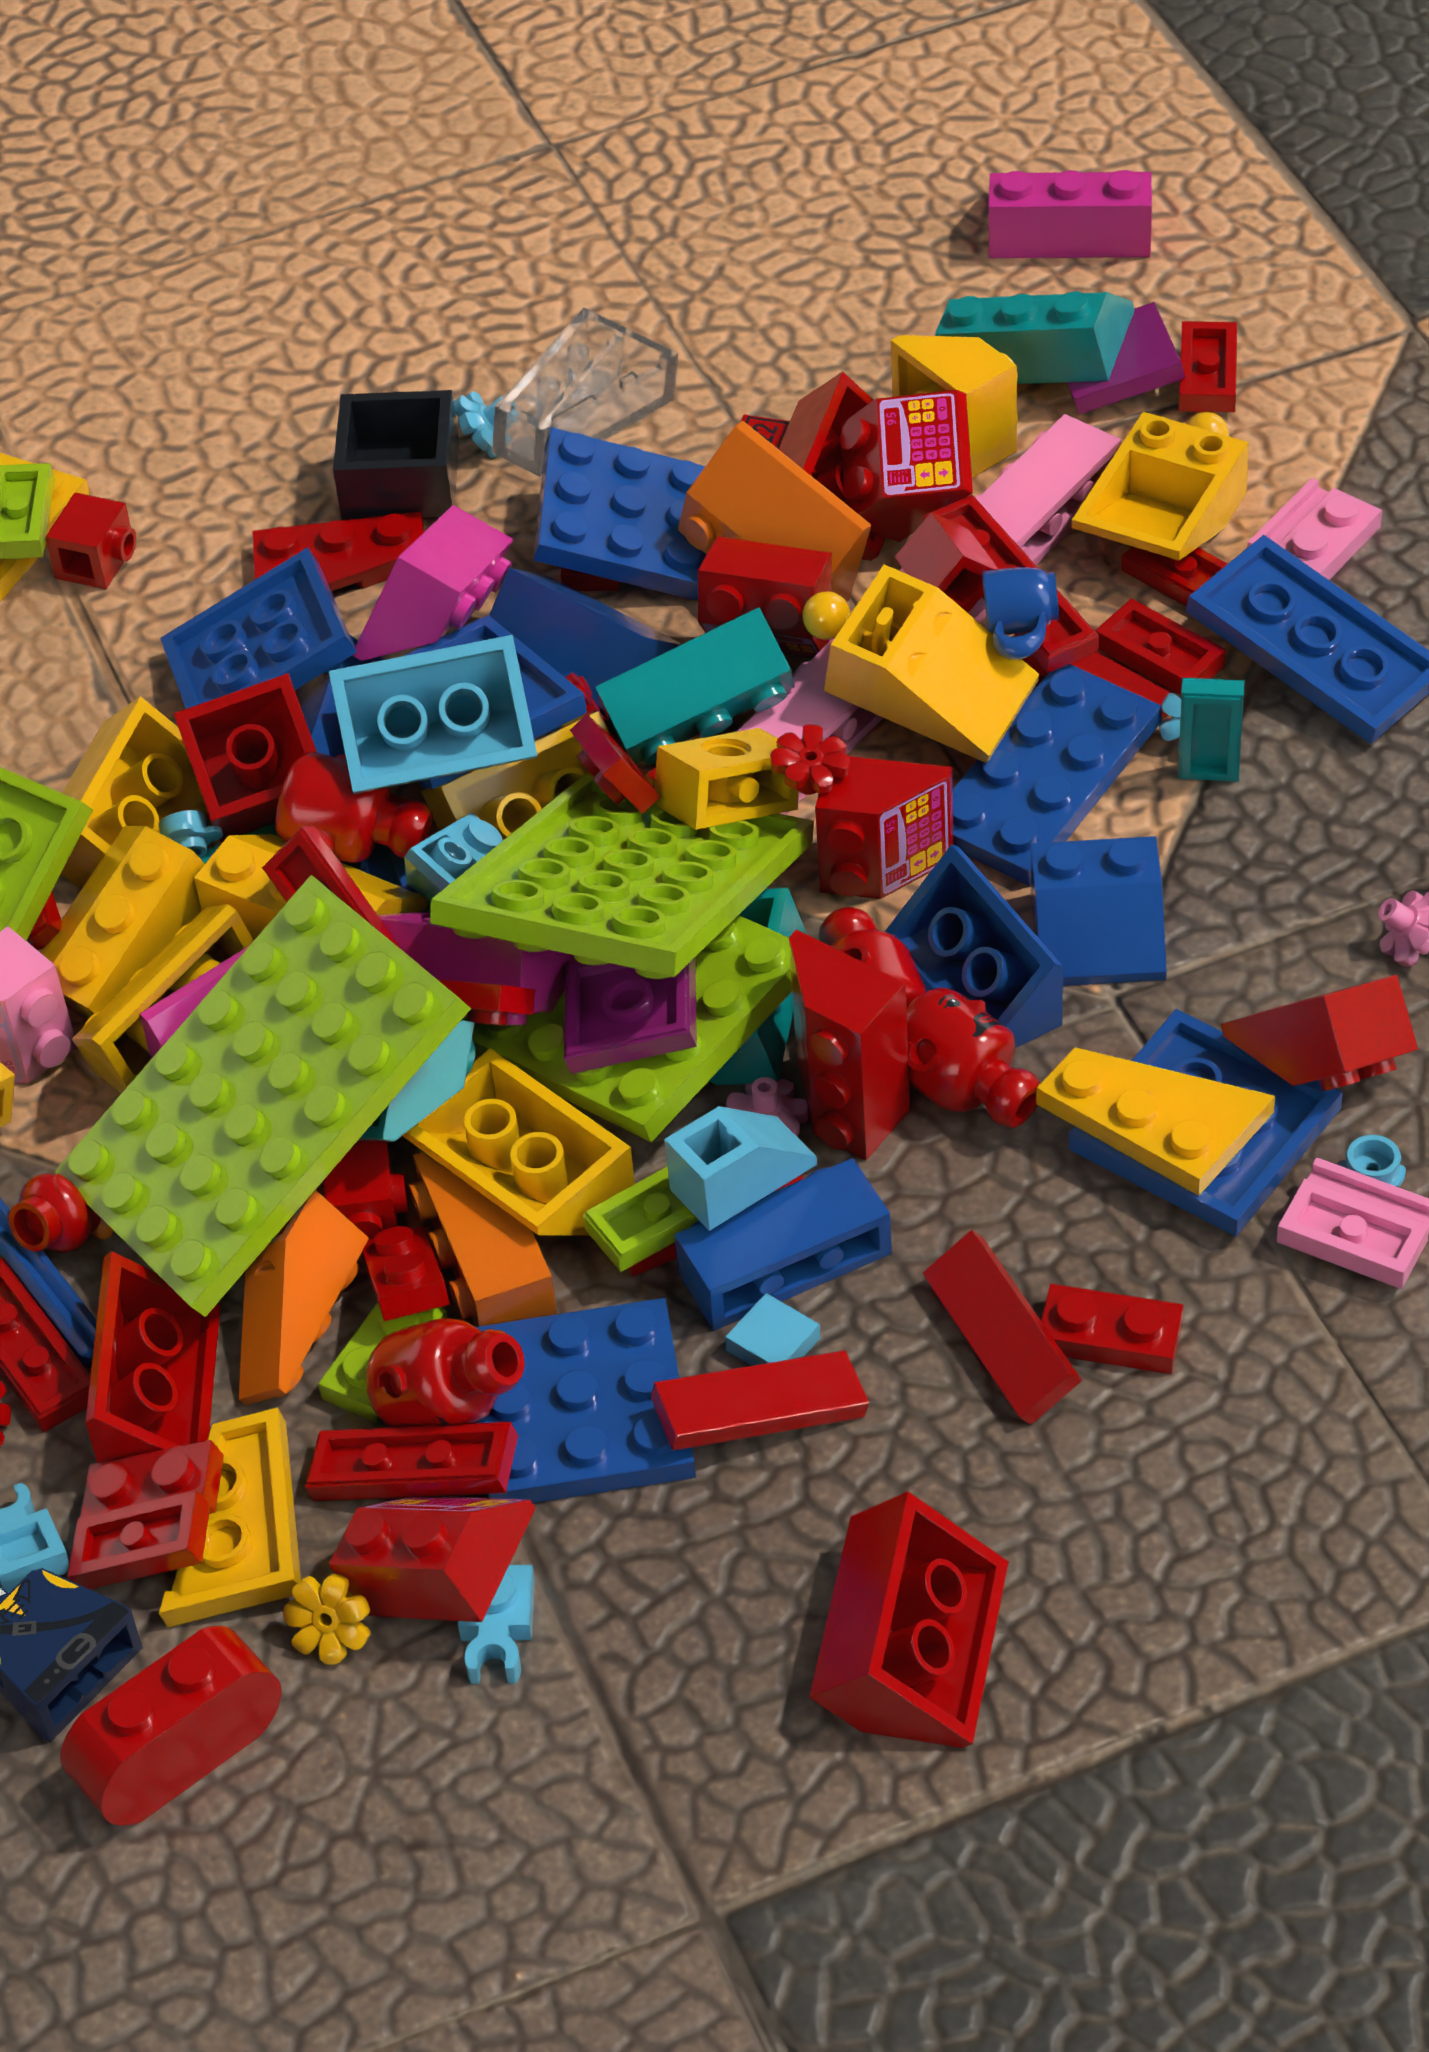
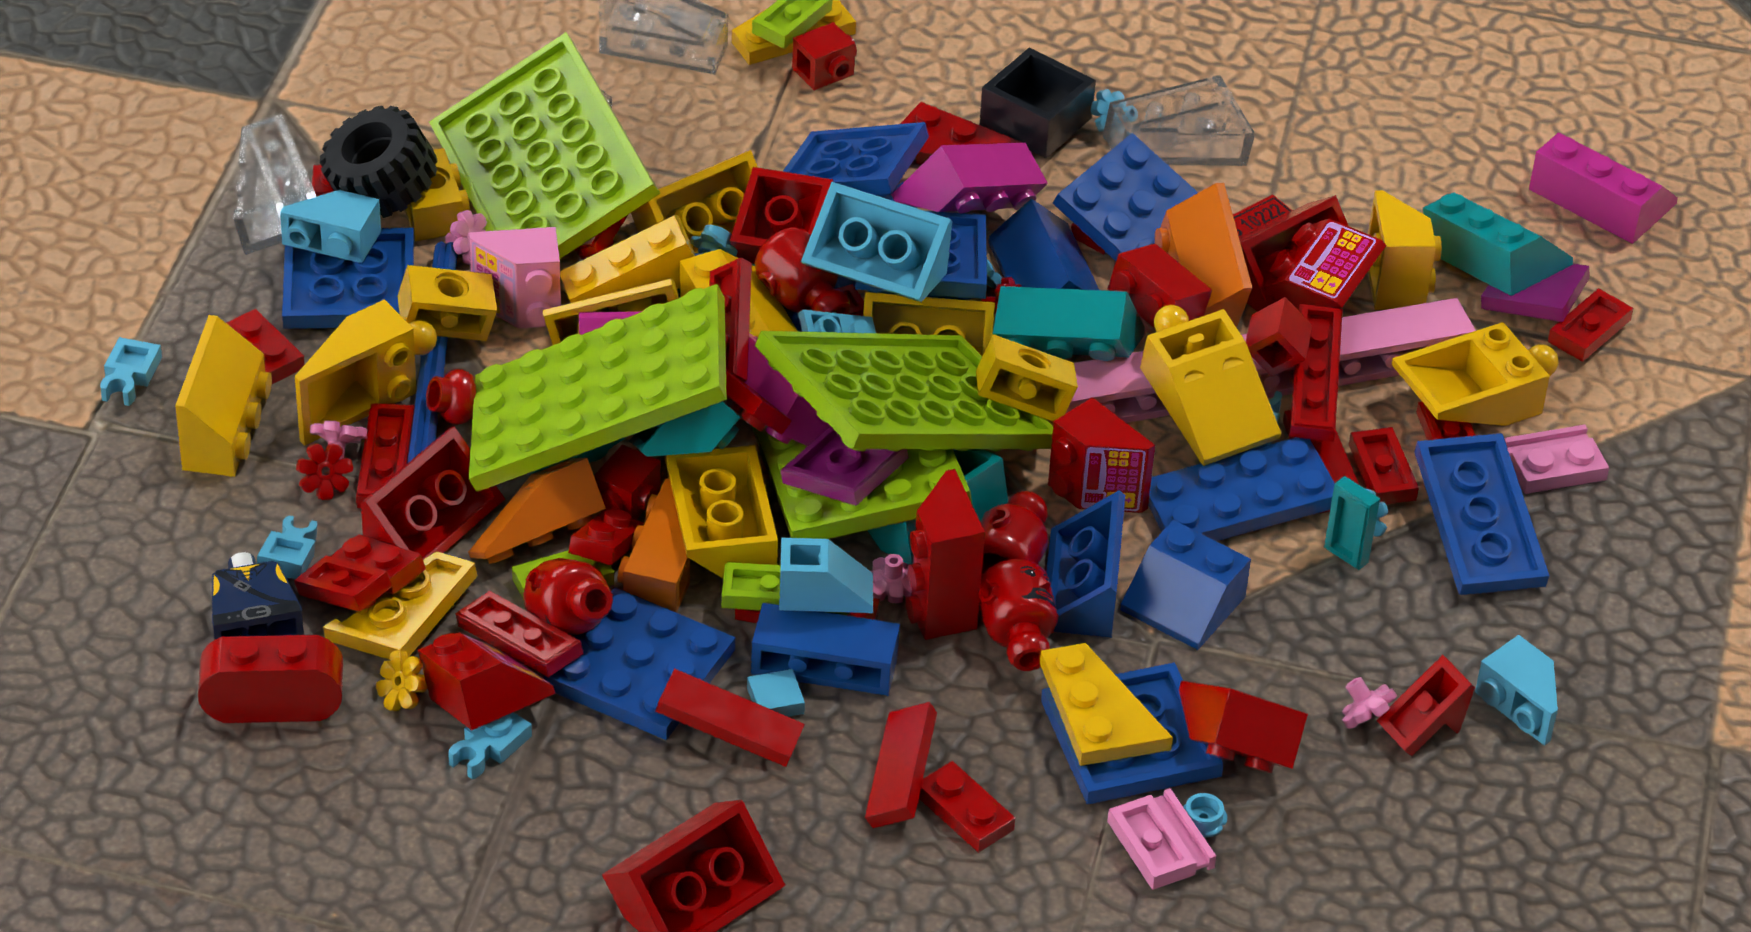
camera: 30 degrees right, 5 degrees down
(612, 766) = (968, 334): red plate -> none
(810, 761) = (1073, 391): red plant -> none
(1019, 603) = (1294, 381): blue piece -> none

